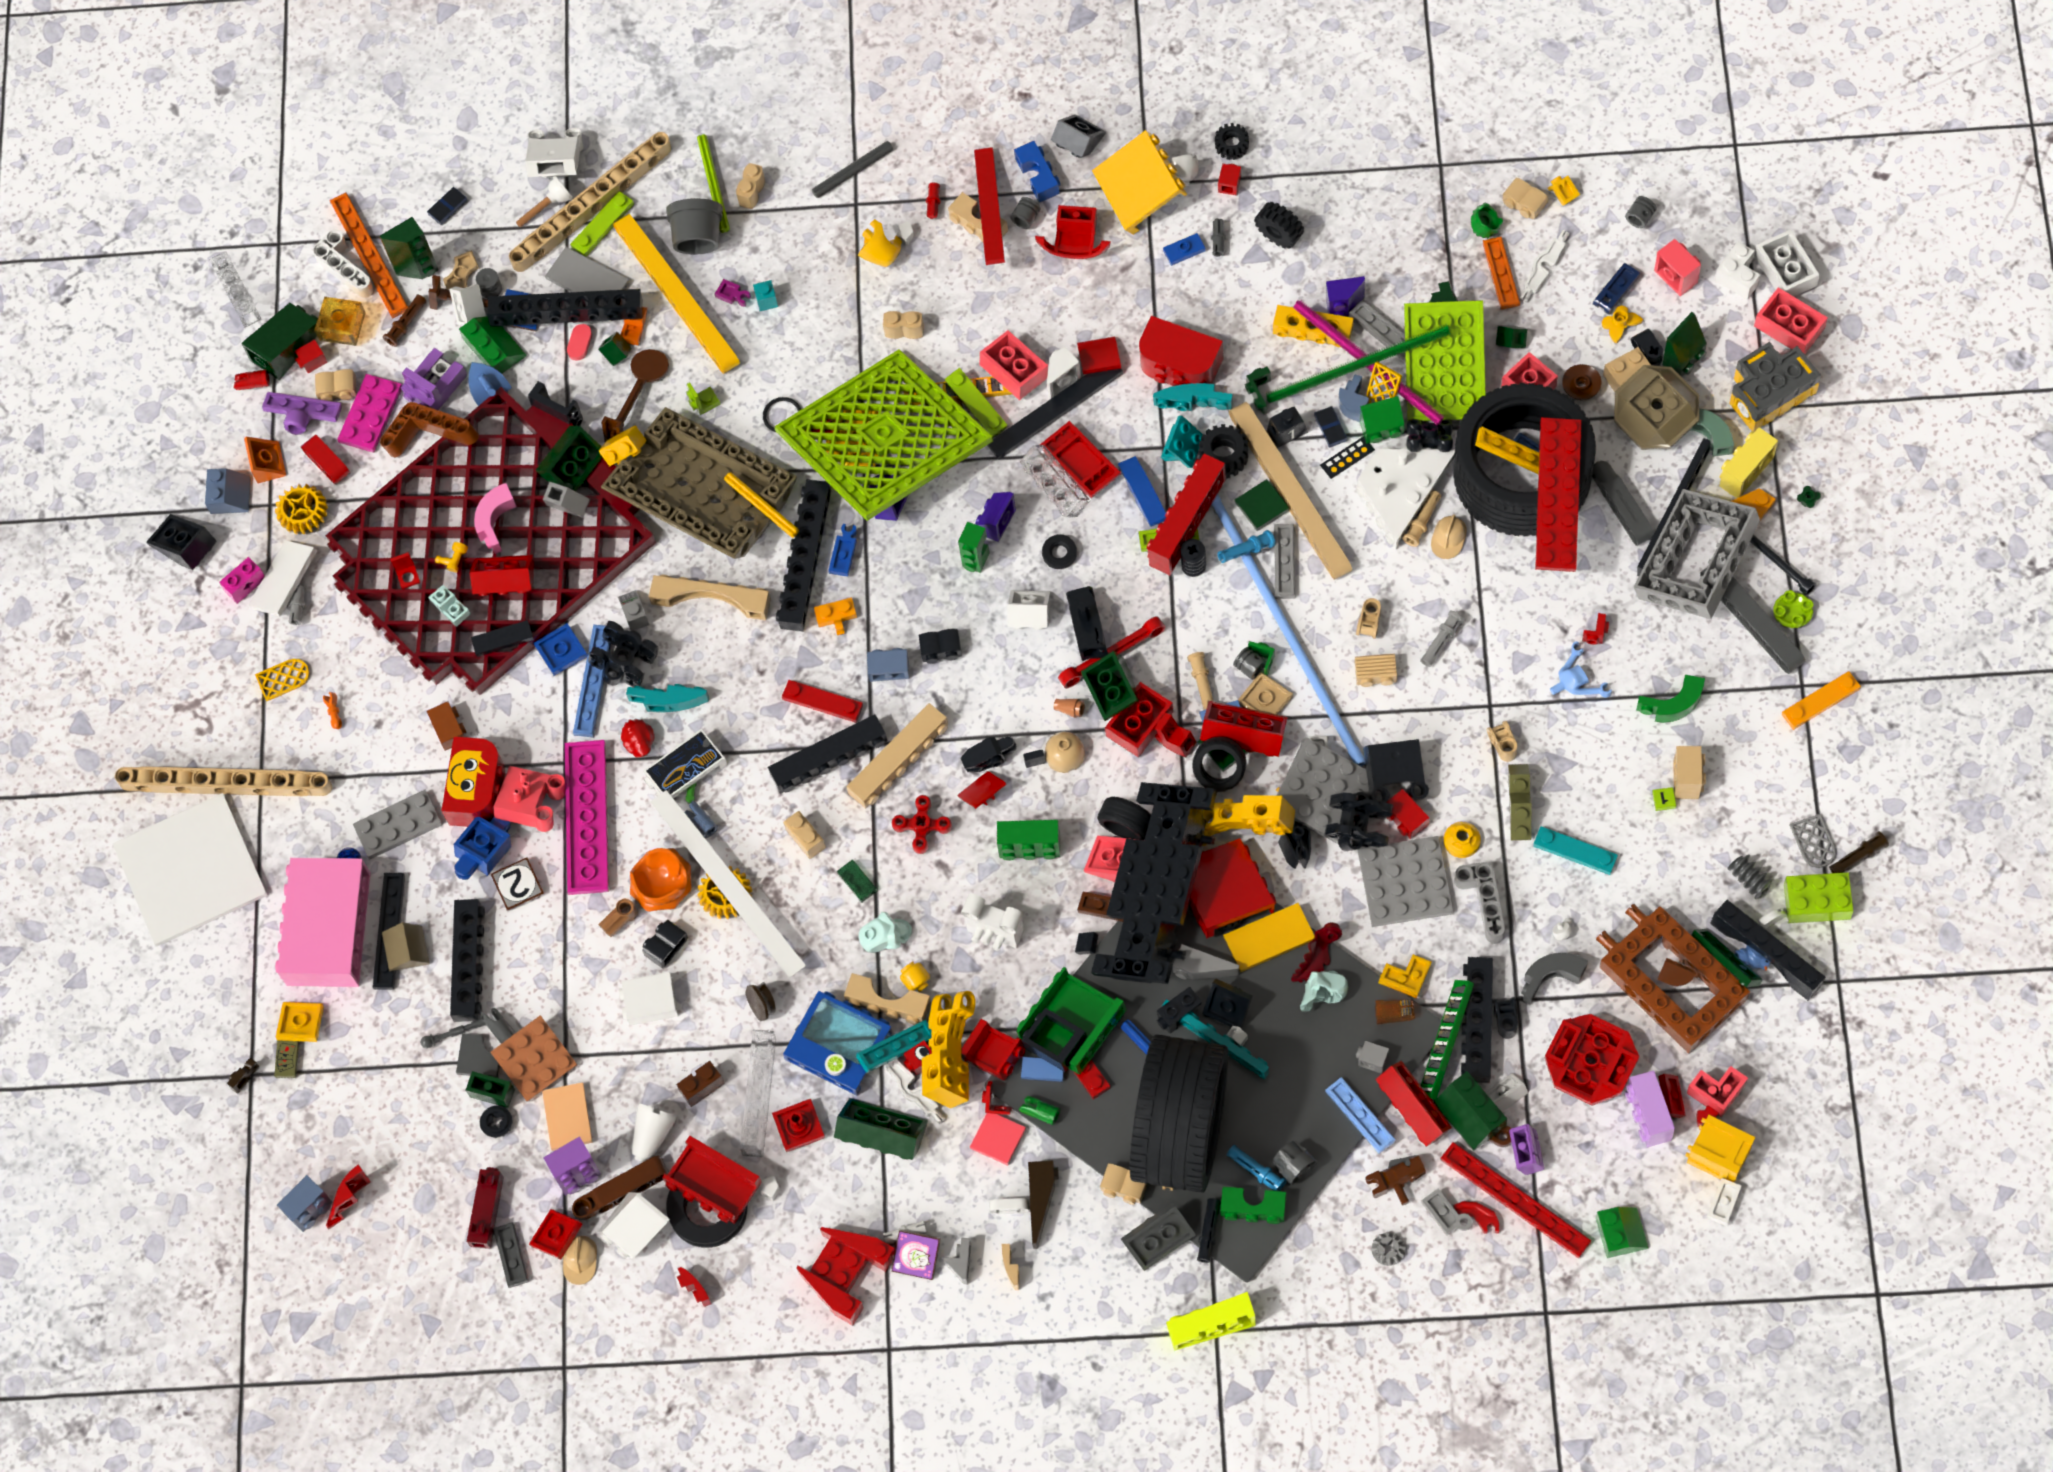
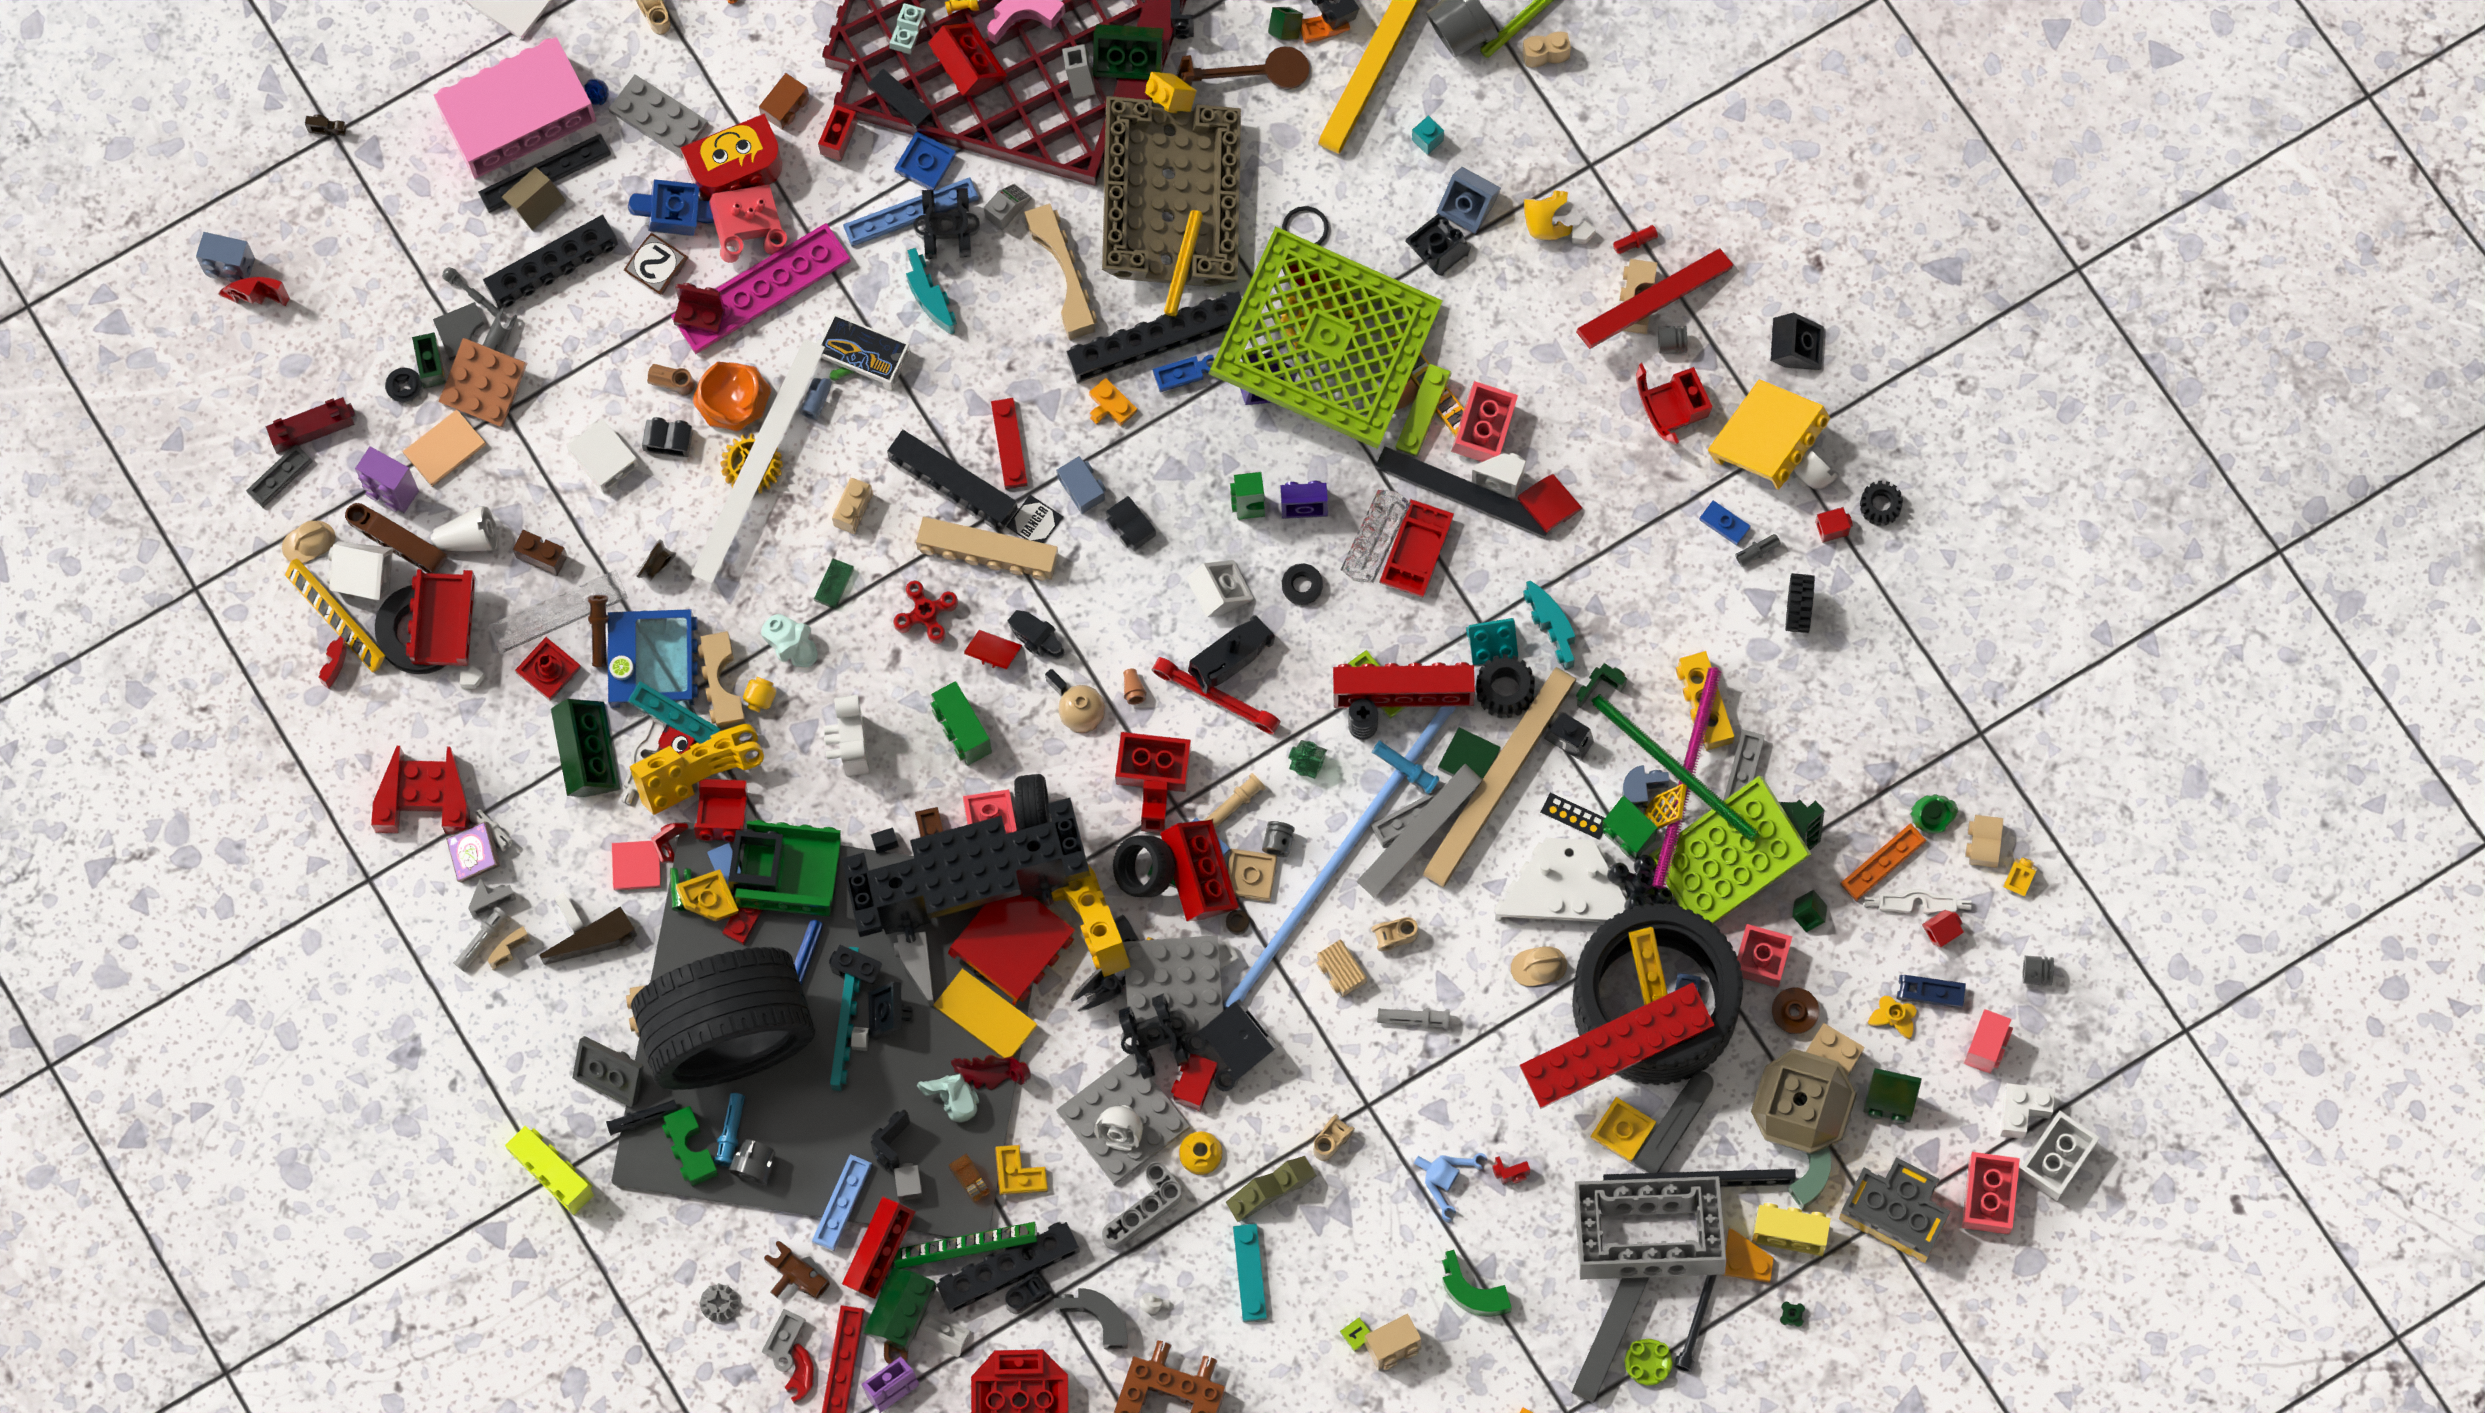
camera: 55 degrees right, 5 degrees up
(286, 1059) = (366, 155): olive tile -> none
(299, 1021) = (407, 145): yellow tile -> none
(498, 698) = (837, 132): none -> red brick
(555, 1234) = (318, 505): red tile -> none
(577, 865) = (699, 308): none -> dark red bracket
(637, 737) = (869, 288): red hair -> none
(655, 1266) = (335, 615): none -> yellow tile
(703, 400) = (1275, 141): lime bracket -> none
(730, 291) = (1413, 98): magenta plate -> none
(786, 1062) = (598, 621): none -> reddish brown pin
(832, 294) = (1468, 199): none -> sand blue slope
(852, 169) = (1627, 139): dark grey axle -> none
(853, 330) = (1439, 244): none -> black slope
(894, 713) = (1034, 520): none -> sticker
(903, 325) = (1474, 292): tan brick -> none
(986, 1274) = (463, 961): none -> light grey pin
(1031, 158) = (1719, 340): blue arch -> none
(1060, 1089) = (708, 896): none -> yellow plate
(1110, 685) = (1172, 713): dark green slope -> none
(1142, 491) = (1415, 629): blue slope -> none
(1178, 354) = (1588, 582): red brick -> none
(1199, 612) = (1307, 758): none -> clear green brick
(1265, 651) = (1297, 856): green bracket -> none
(1296, 725) = (1237, 922): none -> dark brown tile
(1301, 563) = (1419, 830): none -> light grey beam
(1330, 426) = (1599, 780): black tile -> none
(1338, 1061) = (883, 1137): none -> black bracket
(1344, 295) = (1753, 713): dark purple slope -> none
(1417, 880) = (1119, 1127): none -> white cylinder
(1418, 525) = (1532, 928): tan pin -> none
(1575, 256) = (1943, 928): none -> red brick
(1607, 540) = (1623, 1129): none -> yellow plate
(1649, 346) = (1878, 1056): black piece -> none

